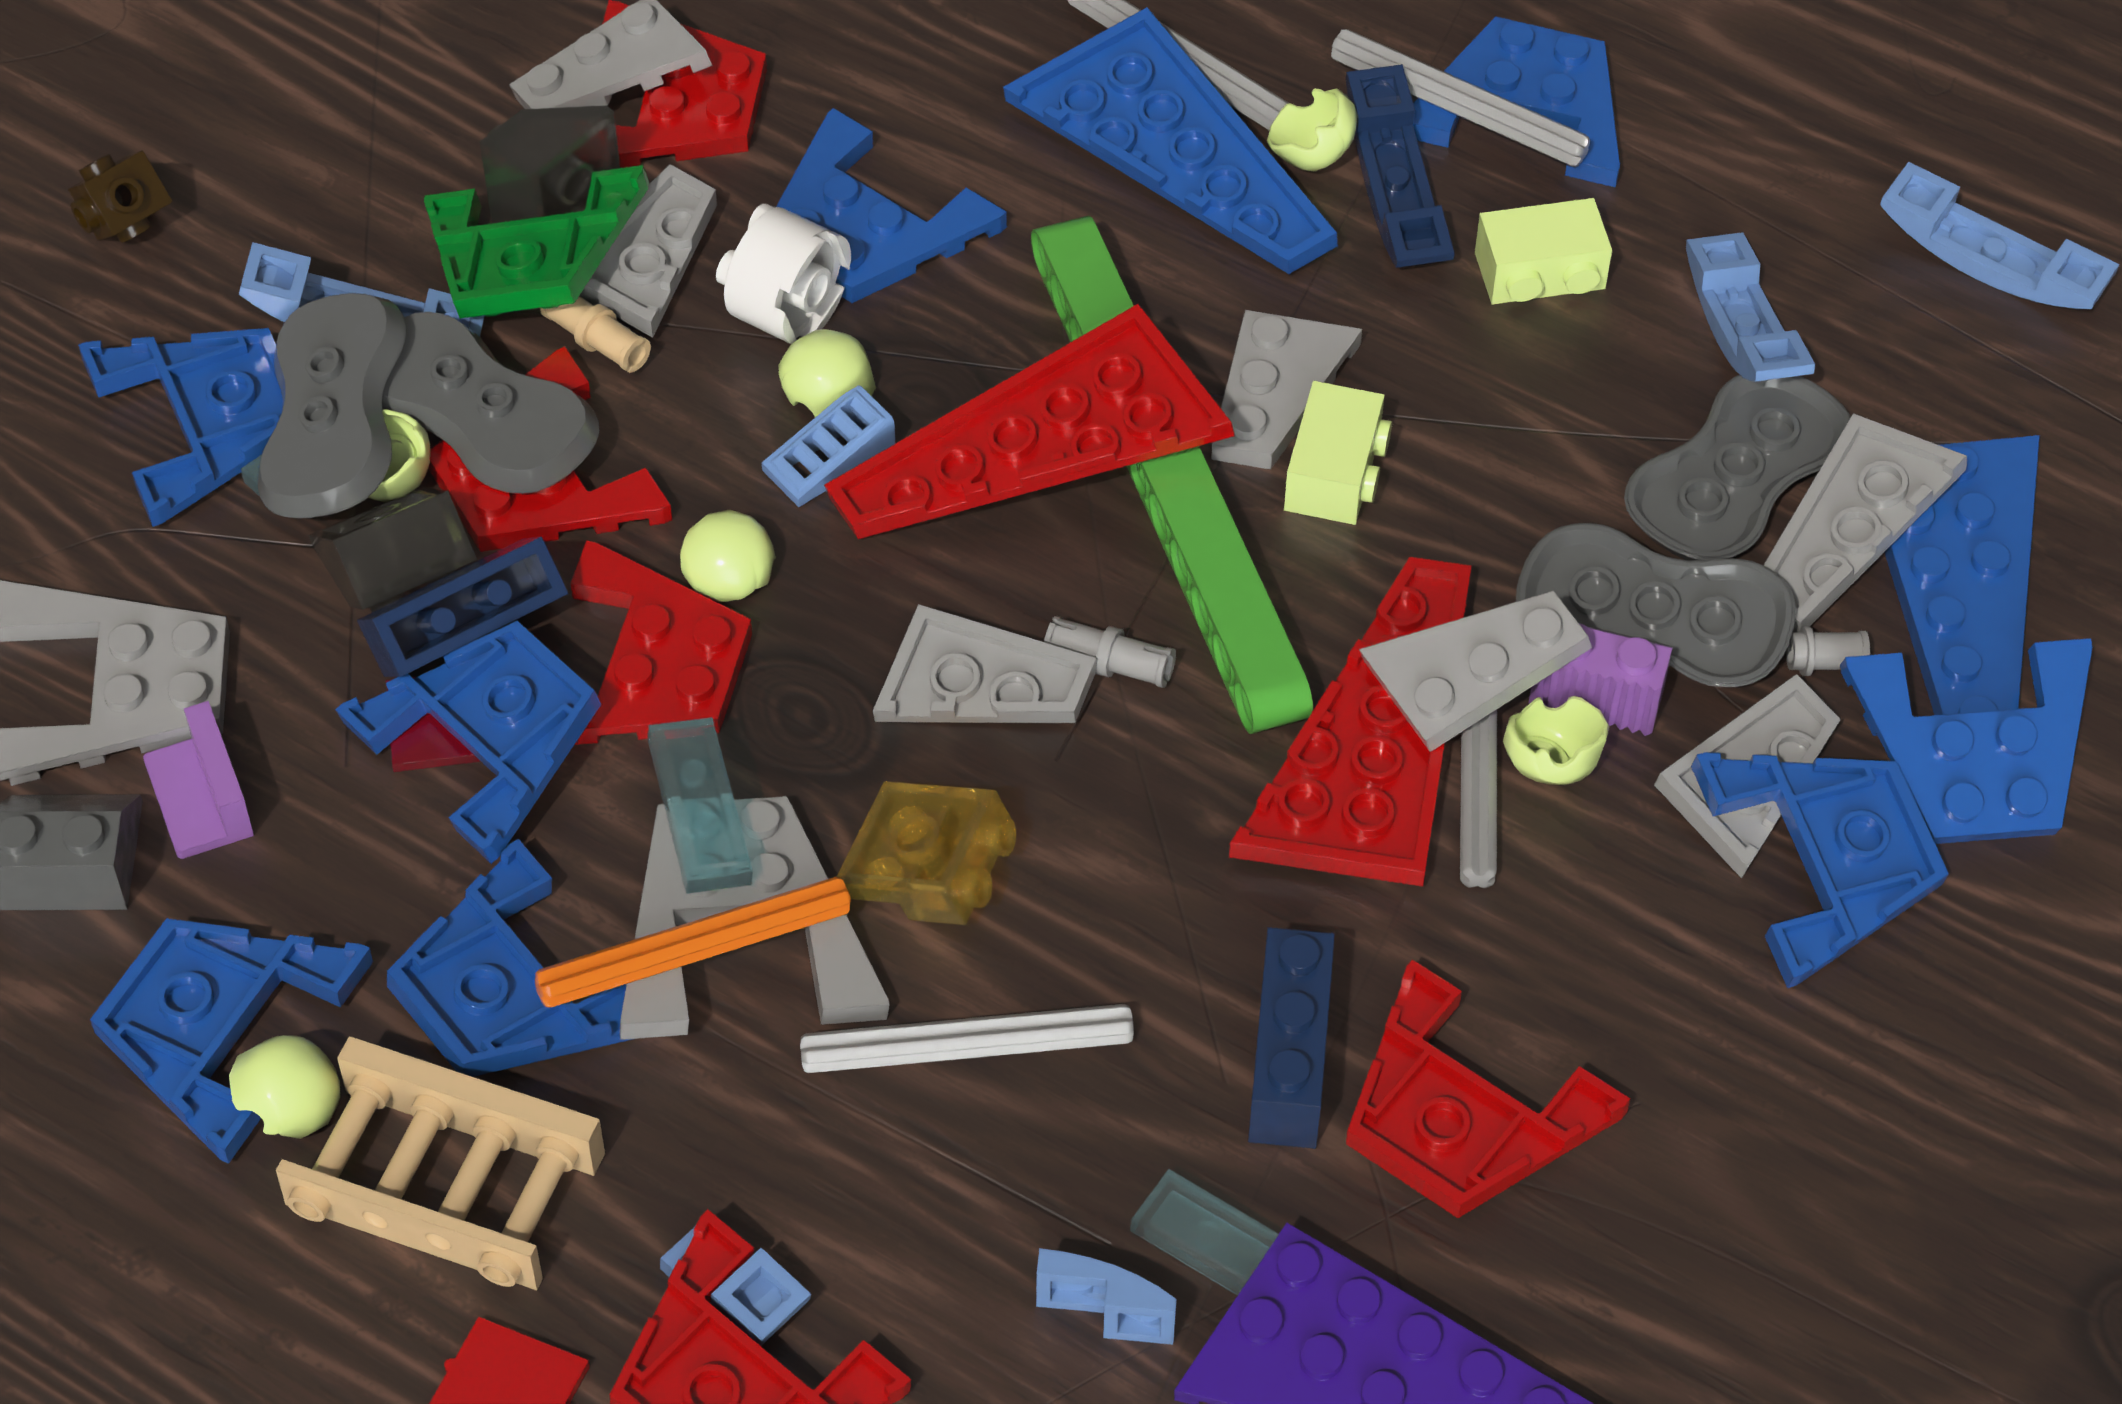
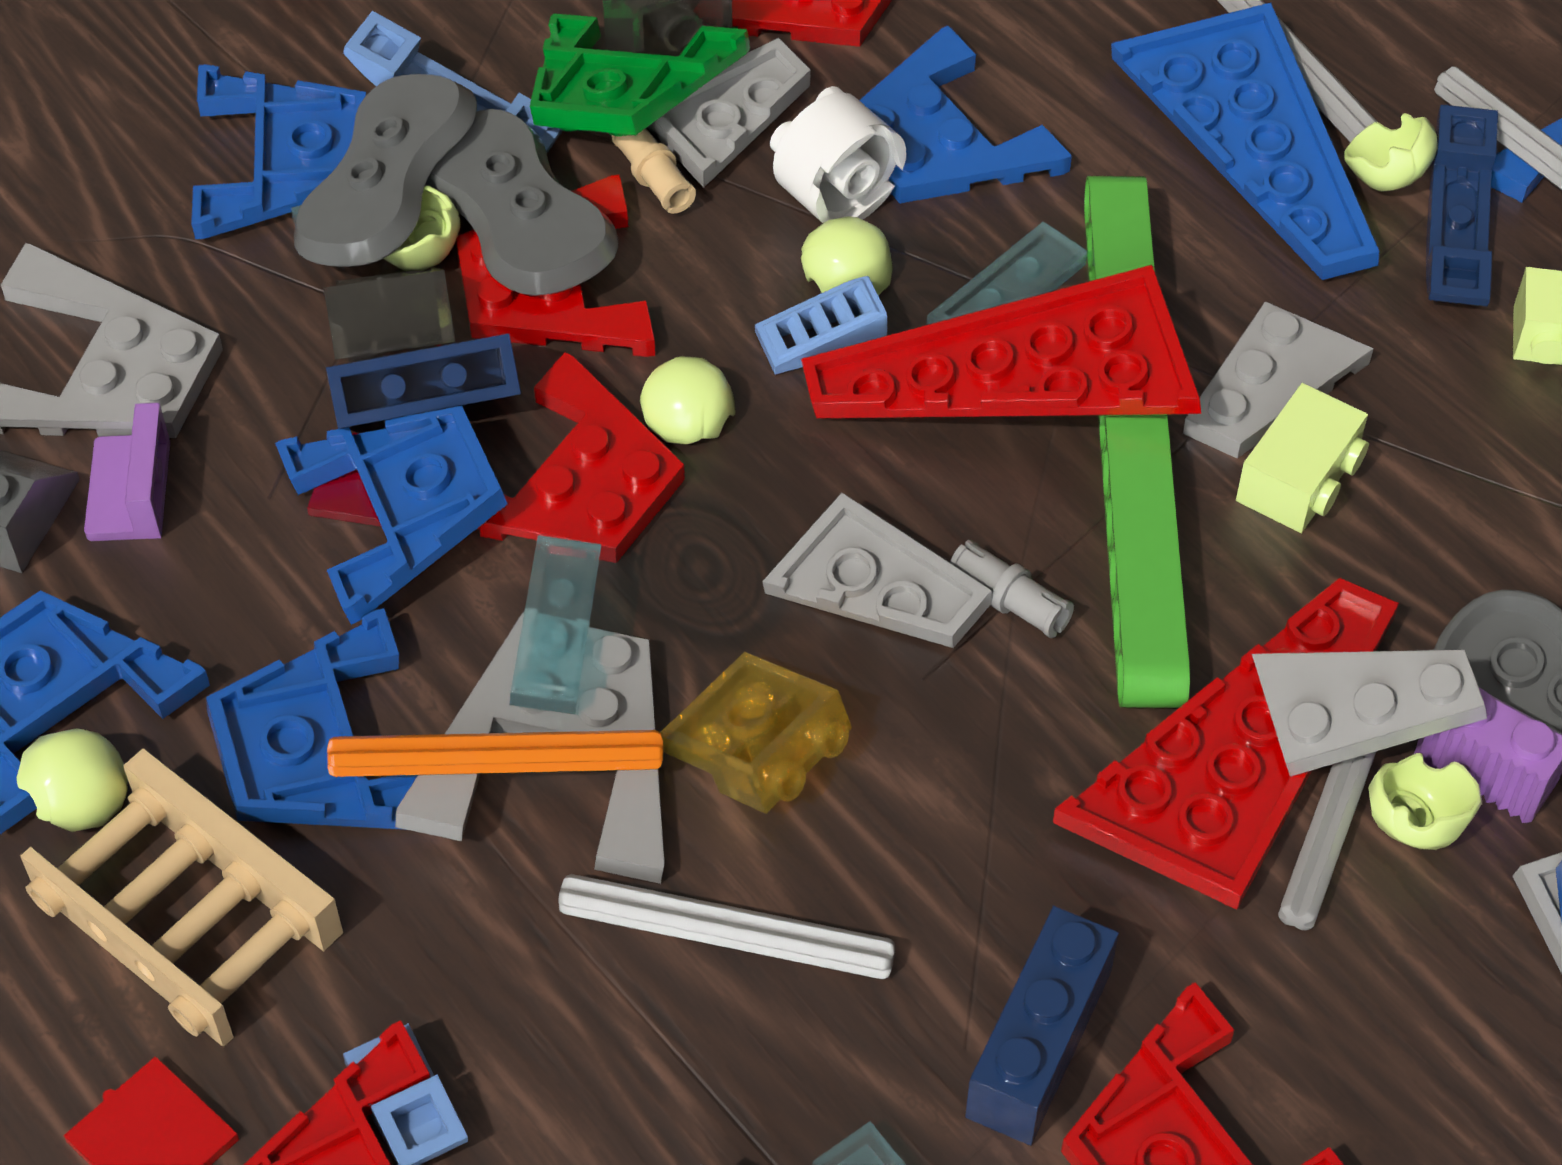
camera: 20 degrees right, 0 degrees up
(997, 349) = (1027, 269): none -> clear light blue tile

